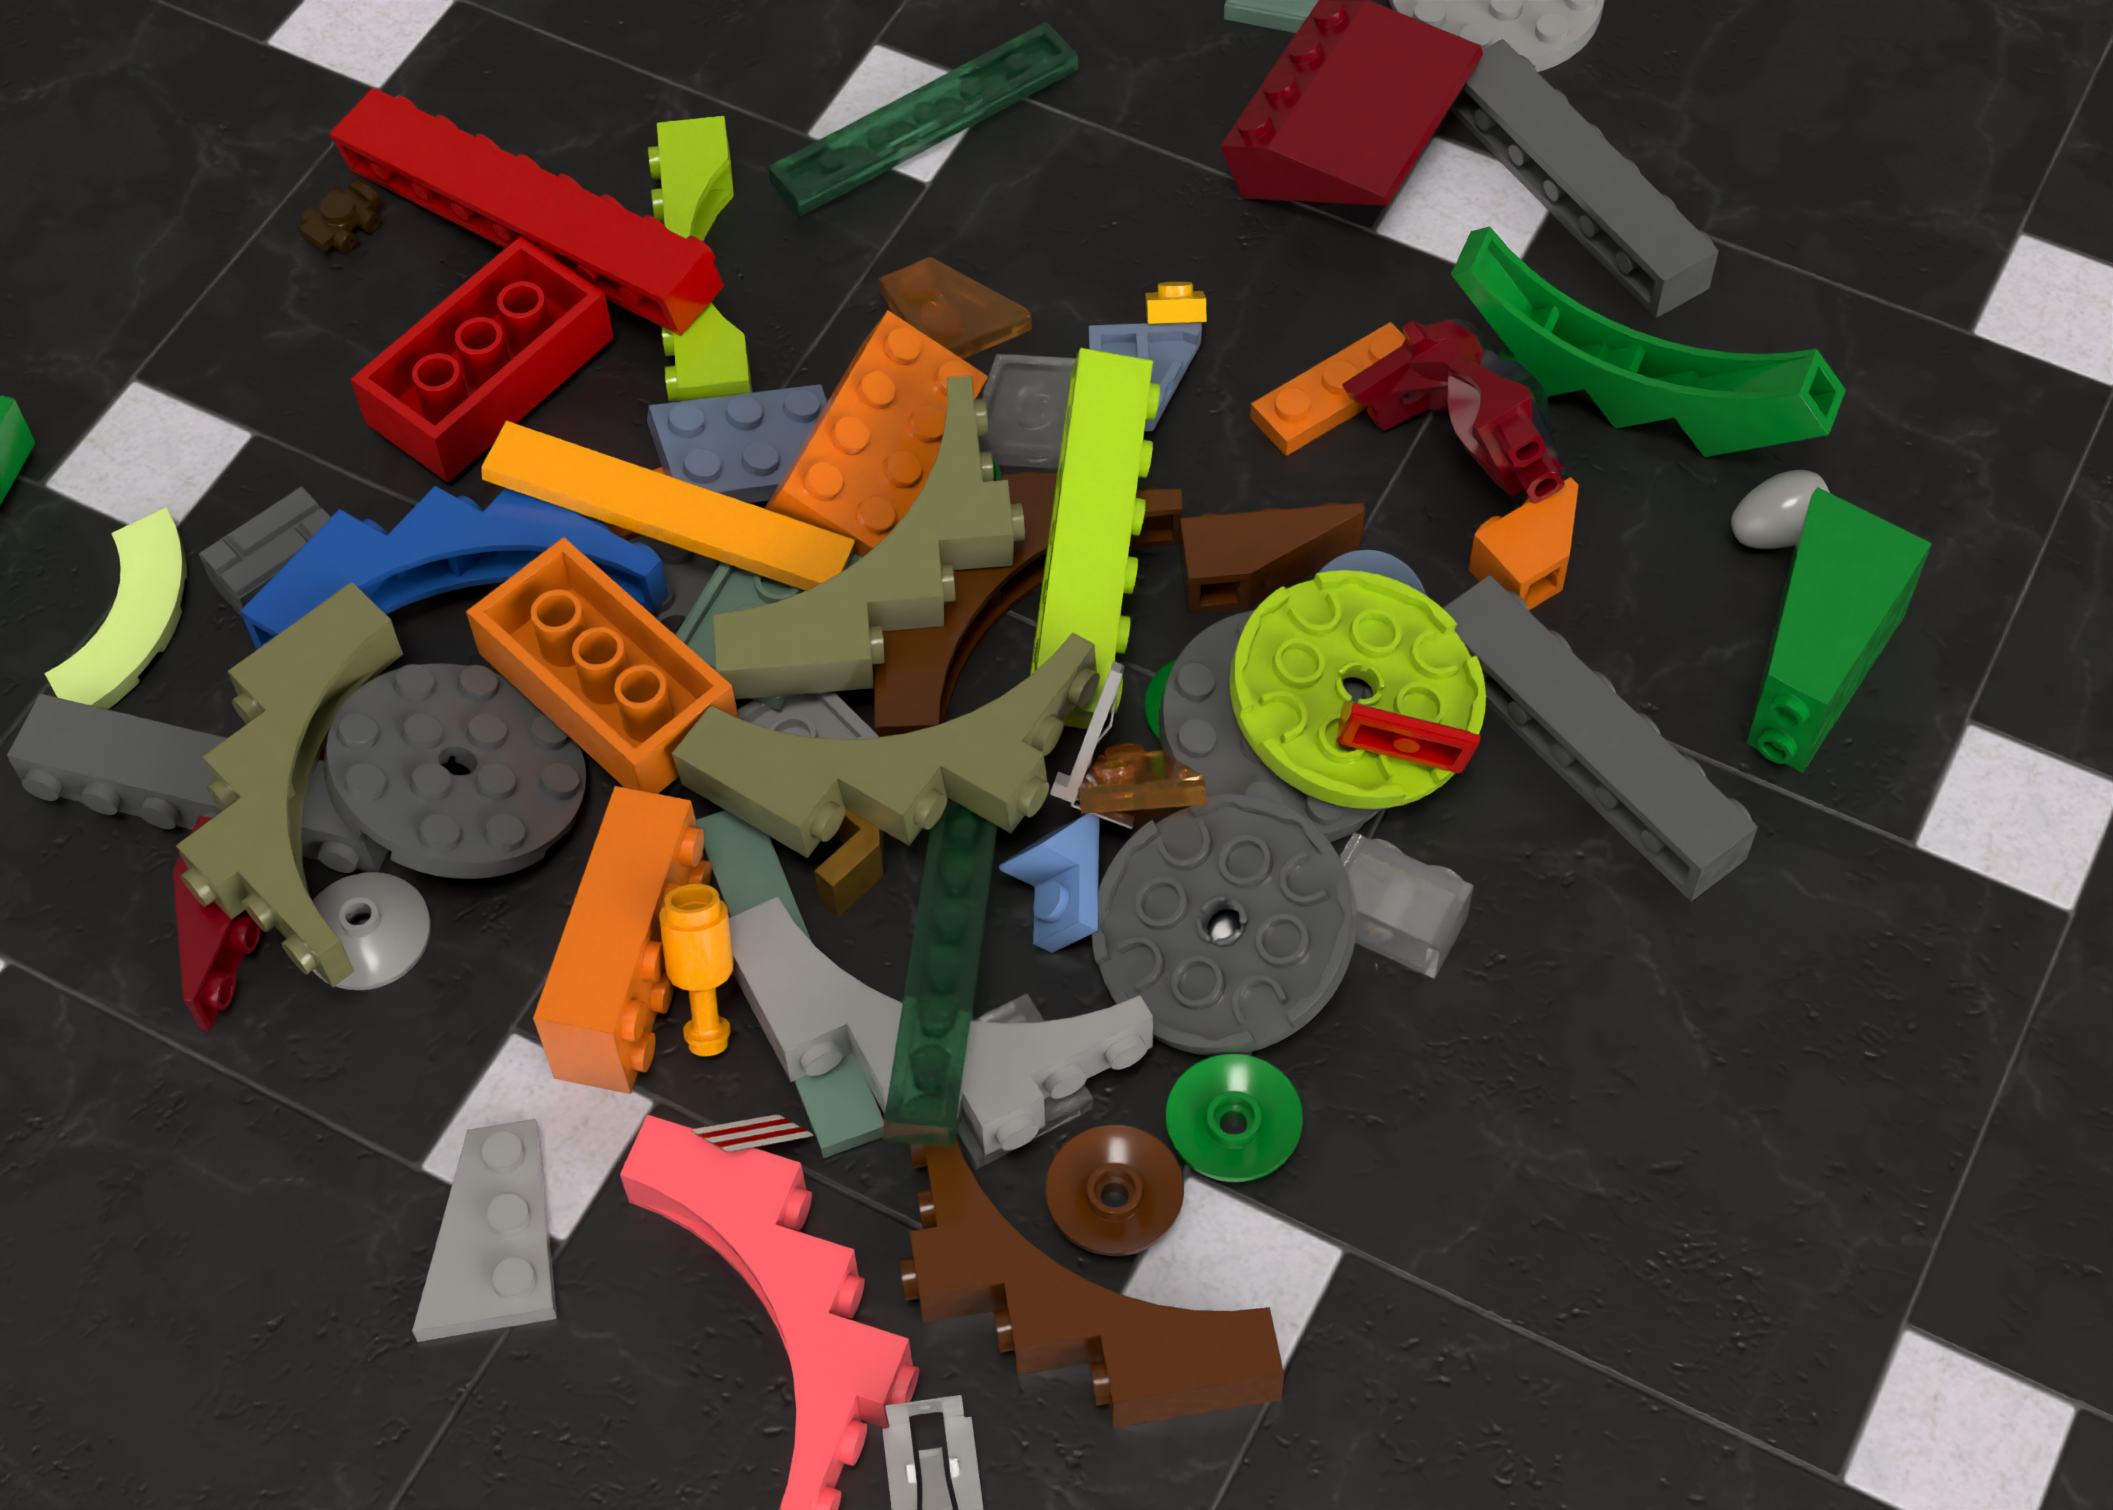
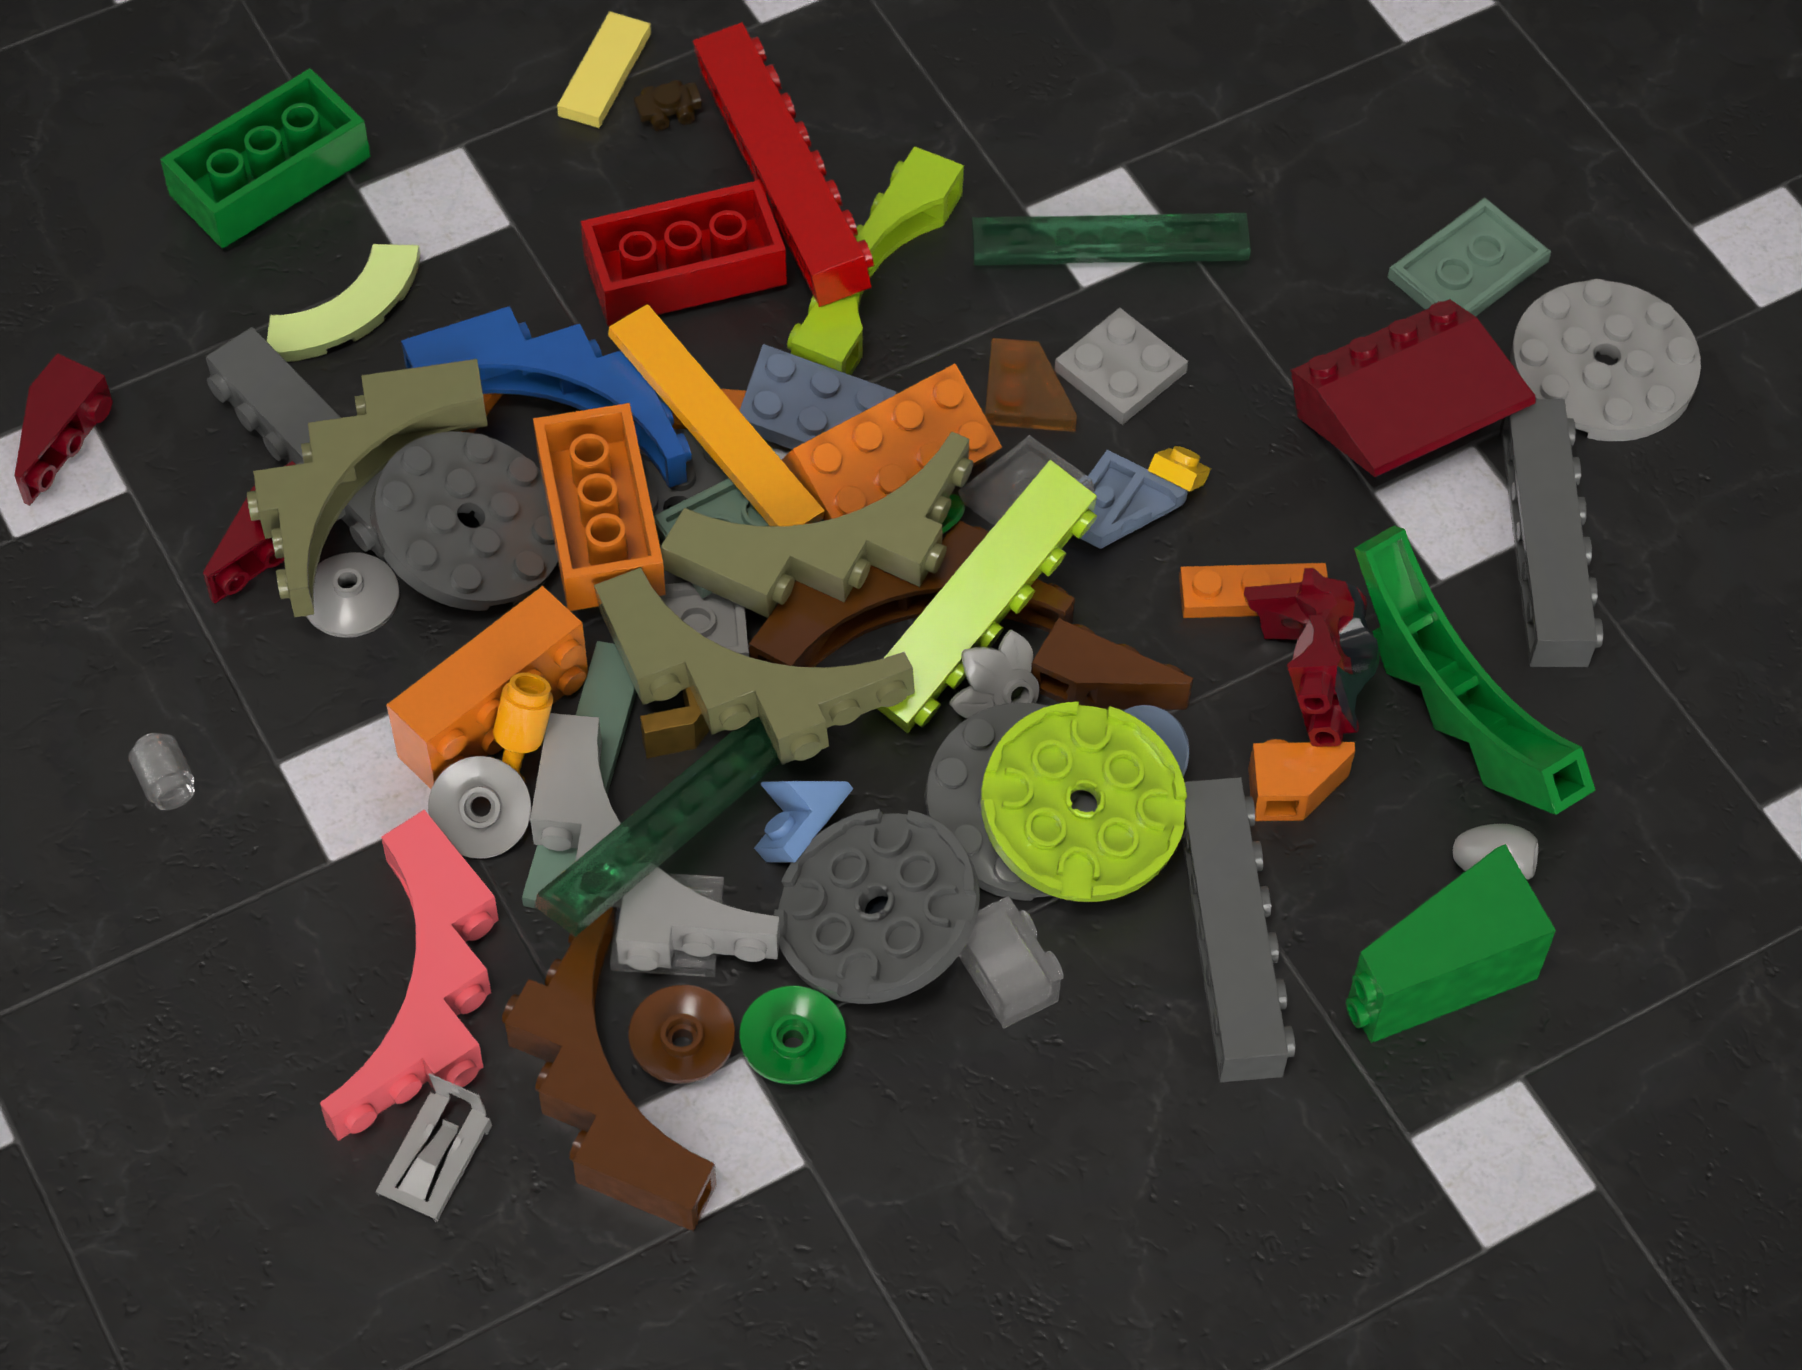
camera: 30 degrees right, 0 degrees up
(241, 218) = (604, 69): none -> light yellow tile
(261, 547) = (455, 302): dark grey brick -> none
(292, 1254) = (162, 771): none -> clear brick
(493, 1239) = (289, 833): light grey wing -> none
(728, 1051) = (453, 813): none -> light grey dish
(752, 1133) = (483, 861): sticker -> none
(1030, 238) = (1121, 366): none -> light grey plate
(1066, 785) = (871, 739): light grey piece -> none
(1139, 780) = (887, 776): clear orange wing -> none
(1164, 615) = (996, 675): none -> light grey plate
(1406, 737) = (1085, 849): red slope -> none

